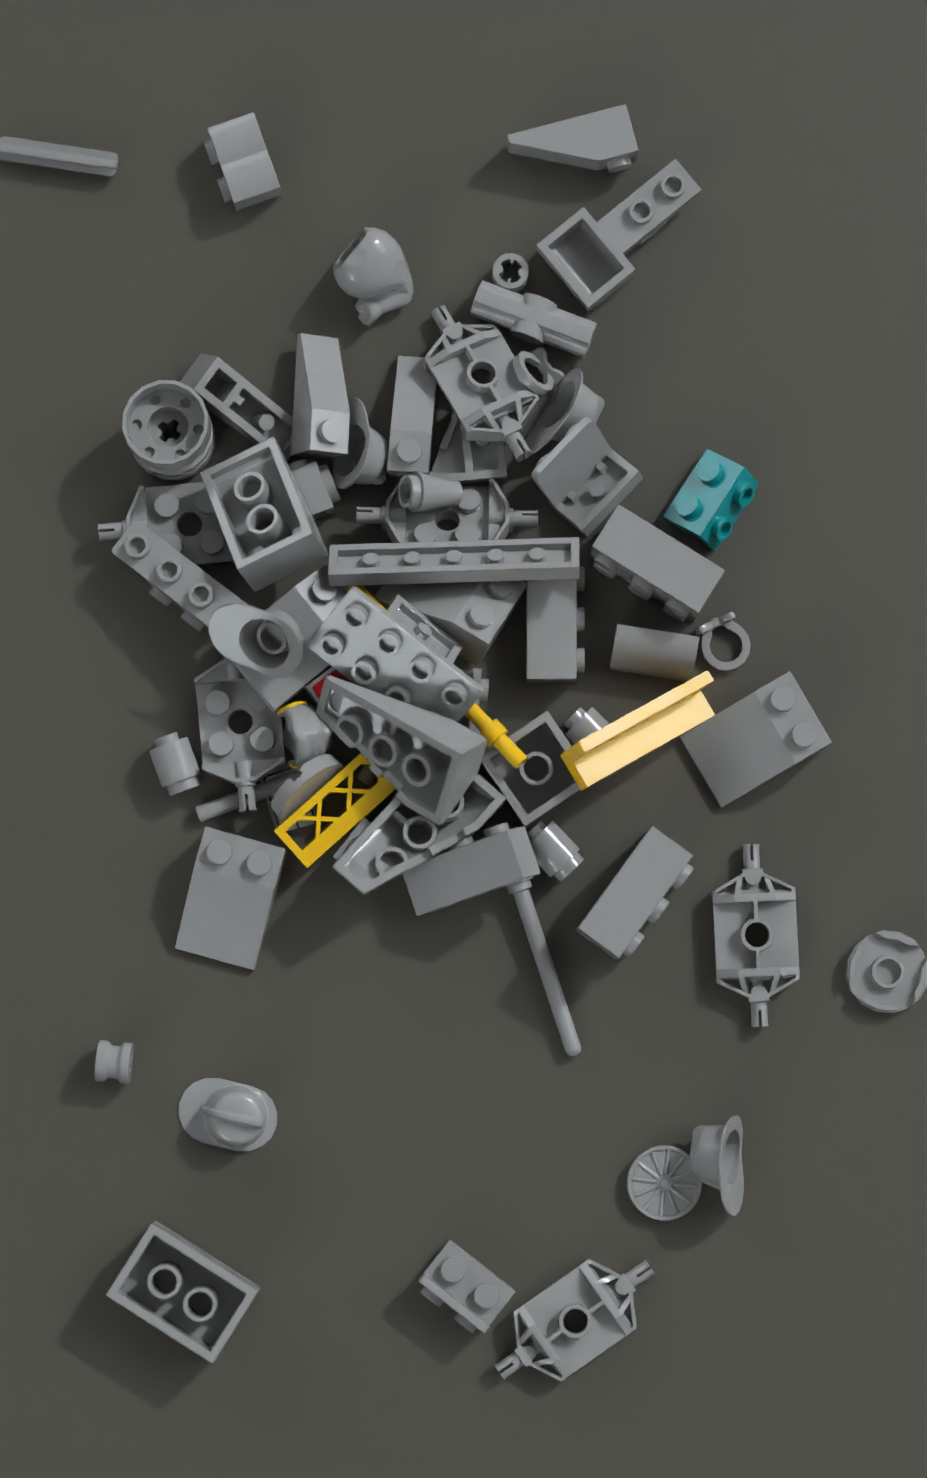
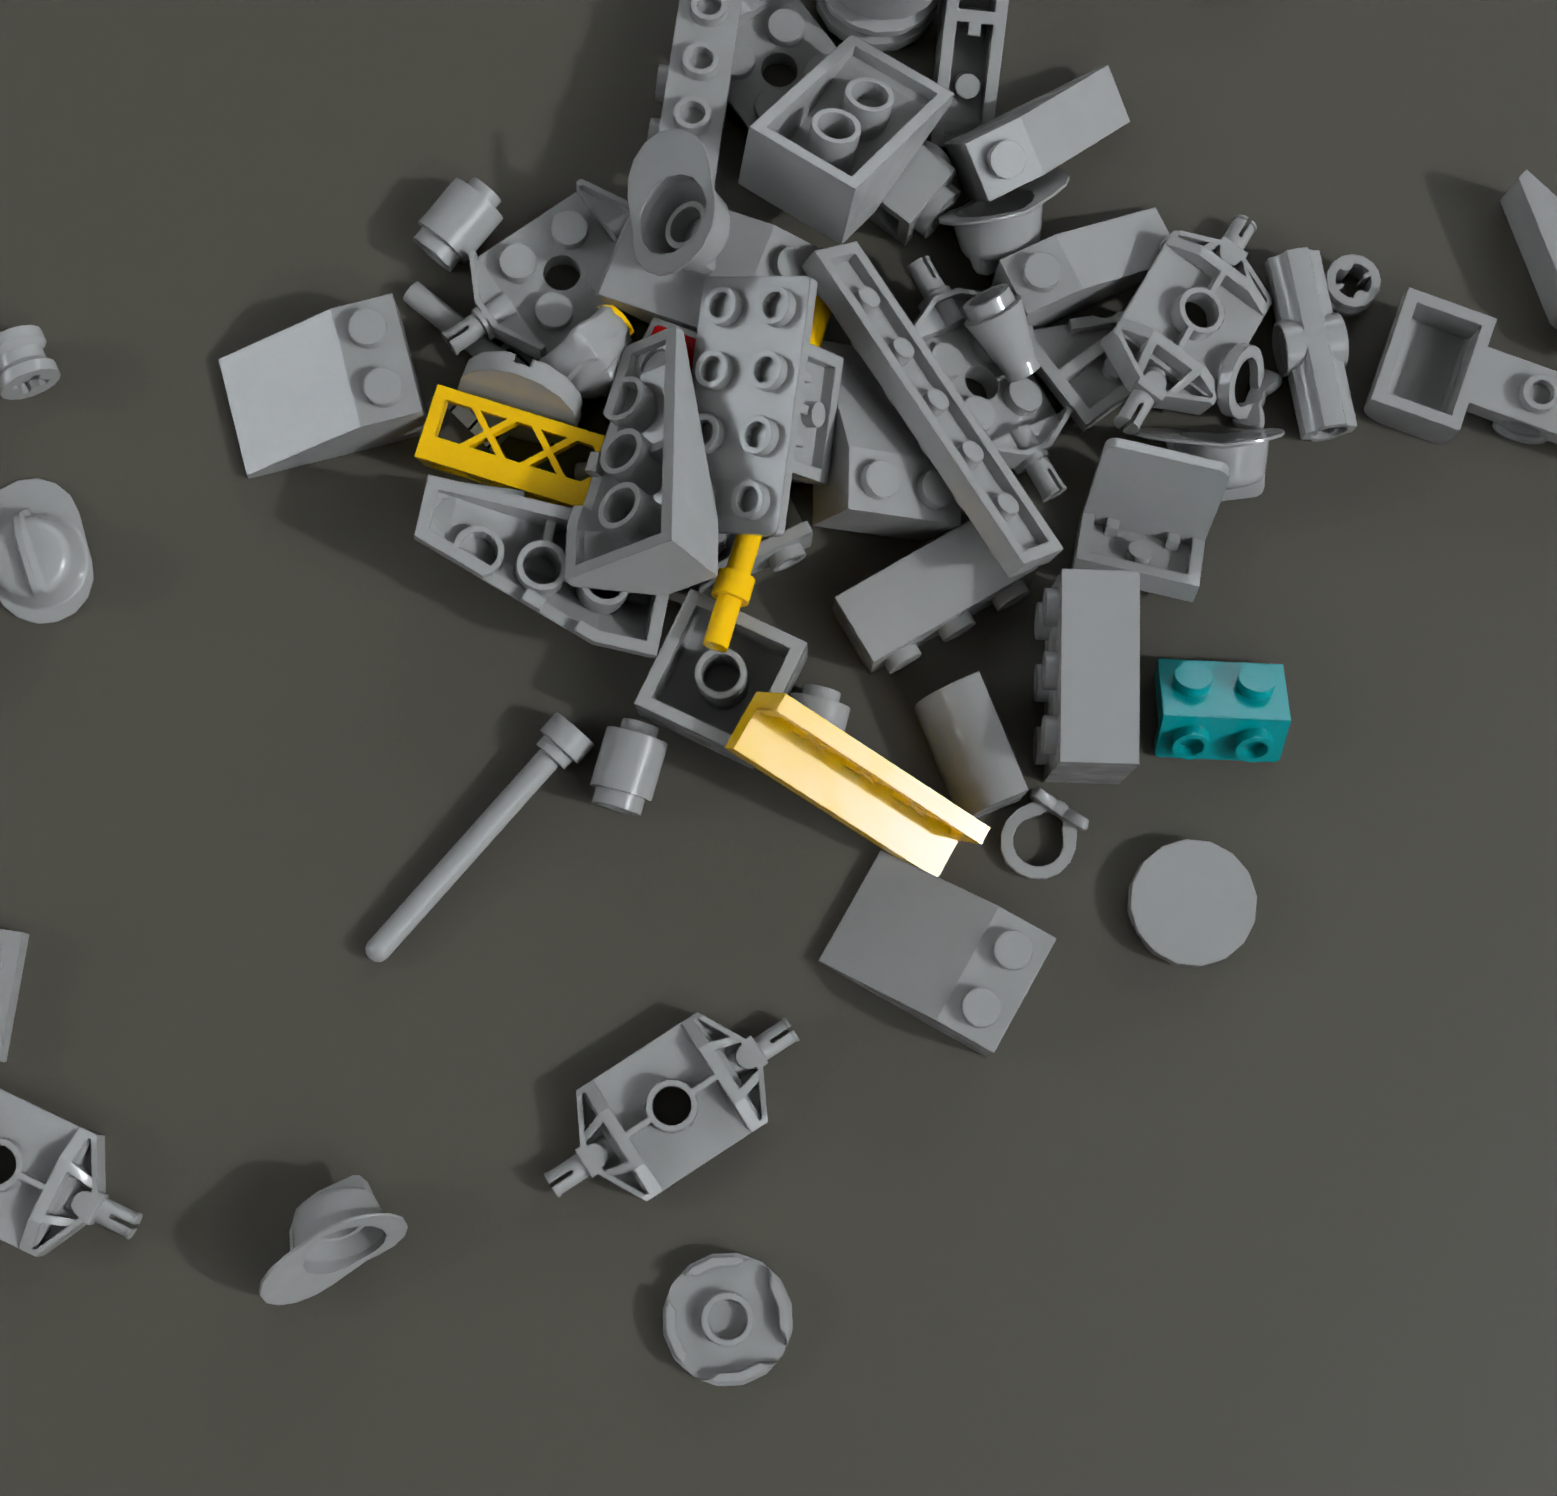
camera: 50 degrees right, 5 degrees down
(375, 273) = (1242, 112): light grey piece -> none
(472, 869) = (536, 667): light grey brick -> none
(636, 894) = (627, 905): light grey brick -> none
(663, 1183) = (260, 1178): light grey wheel -> none
(810, 581) = (1192, 903): none -> light grey tile

